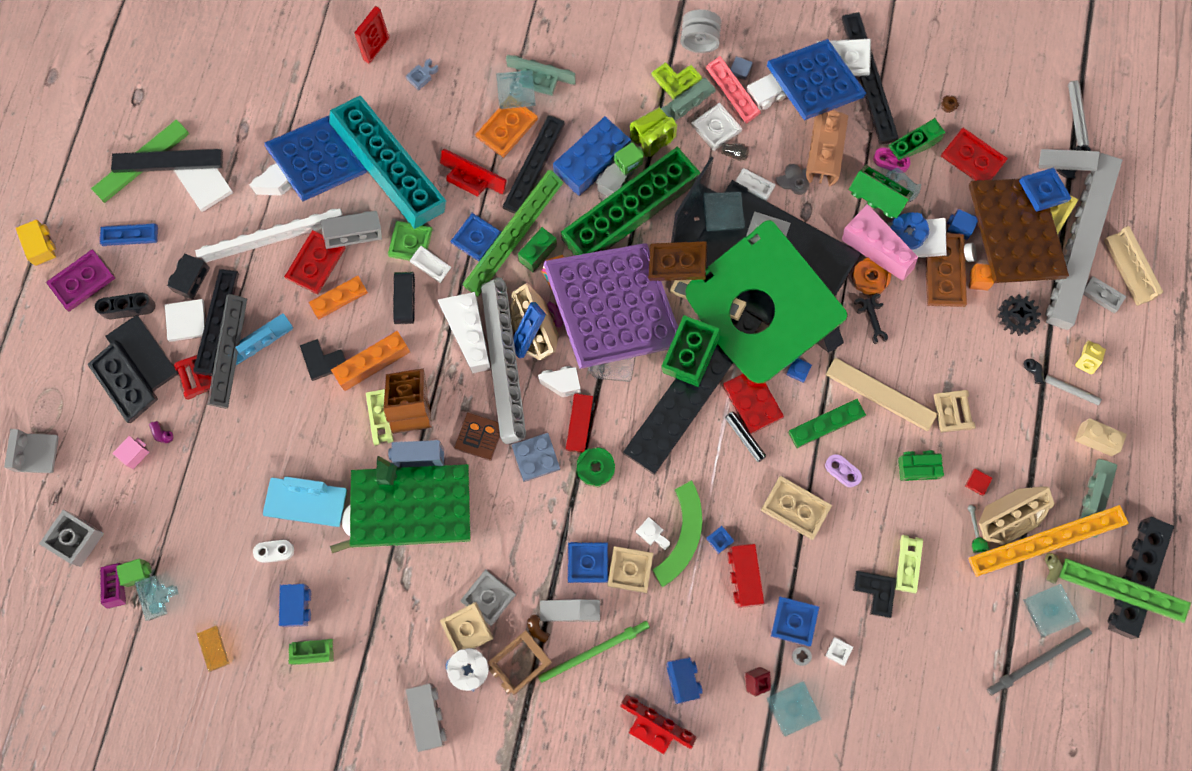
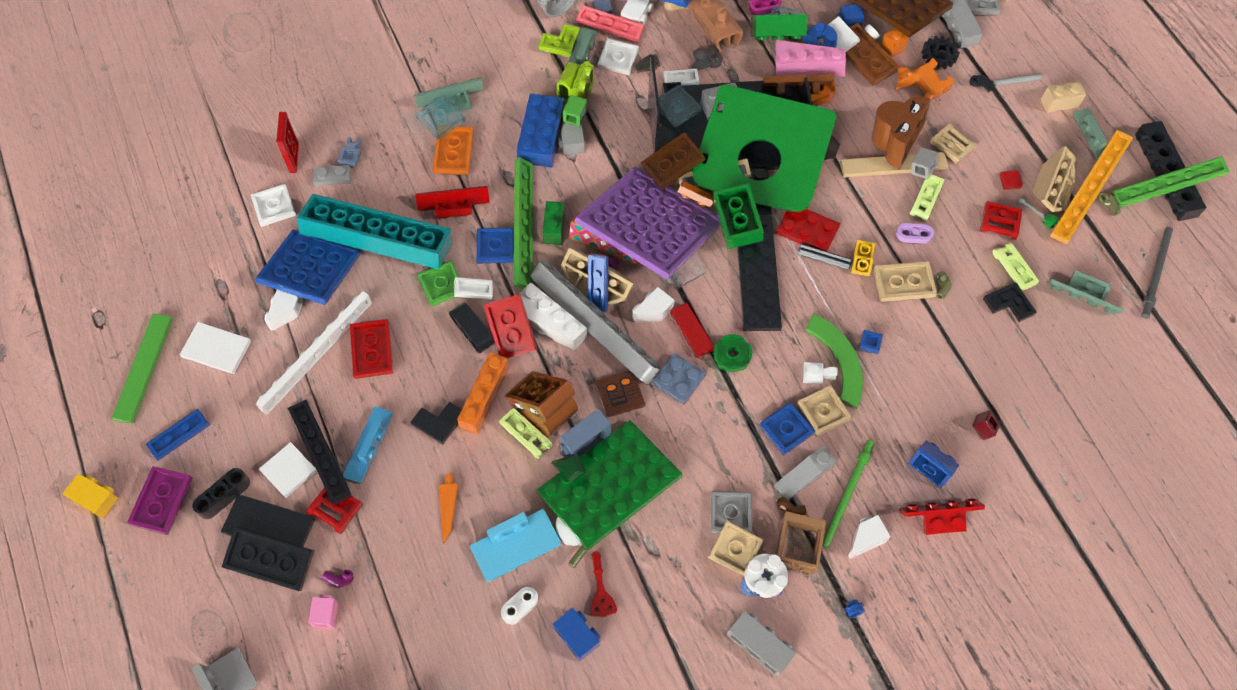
camera: 40 degrees left, 10 degrees down
(167, 160) = (169, 350): black tile -> none
(188, 276) = (263, 431): black brick -> none
(226, 352) = (350, 467): dark grey plate -> none
(283, 428) = (448, 497): none -> orange bar
(311, 652) = (621, 663): bright green hinge -> none
(330, 82) = (273, 205): none -> white tile
(338, 297) = (413, 364): orange plate -> none
(340, 586) = (601, 594): none -> red piece
(351, 229) = (385, 301): light grey brick -> none
(394, 85) = (332, 175): none -> light grey plate
(429, 320) = (510, 326): none -> plate
(520, 745) = (854, 608): none -> blue plate
(534, 164) = (497, 166): black tile -> none
(578, 697) = (868, 535): none -> white slope
(631, 204) = (601, 145): green brick -> none
(676, 303) = (689, 191): none -> orange plate
(745, 576) = (912, 354): red brick -> none
(777, 461) = (863, 258): none -> yellow slope
(793, 708) = (1027, 426): clear light blue plate -> none
(795, 621) = (974, 362): blue plate -> none
(799, 370) = (824, 186): blue plate -> none
(805, 661) = (1000, 390): light grey bush -> none
(826, 423) = (874, 209): green plate -> none
(830, 534) = (944, 285): none -> olive arm
(837, 248) = (781, 82): none -> dark orange hinge
(839, 651) = (1022, 362): white tile -> none
(871, 305) = (855, 124): black bar -> none
(884, 444) = (927, 197): none -> yellowish green plate
(904, 413) = (924, 163): none -> light grey brick
(910, 364) = (898, 127): none -> dark orange brick
(920, 466) = (964, 194): green brick -> none
(938, 508) = (1003, 215): none -> red plate
(956, 631) = (1088, 288): none -> sand green bracket
(980, 333) = (925, 79): none -> orange animal
(1051, 610) = (1134, 232): clear light blue plate -> none
(1091, 357) = (1011, 50): light yellow bracket -> none

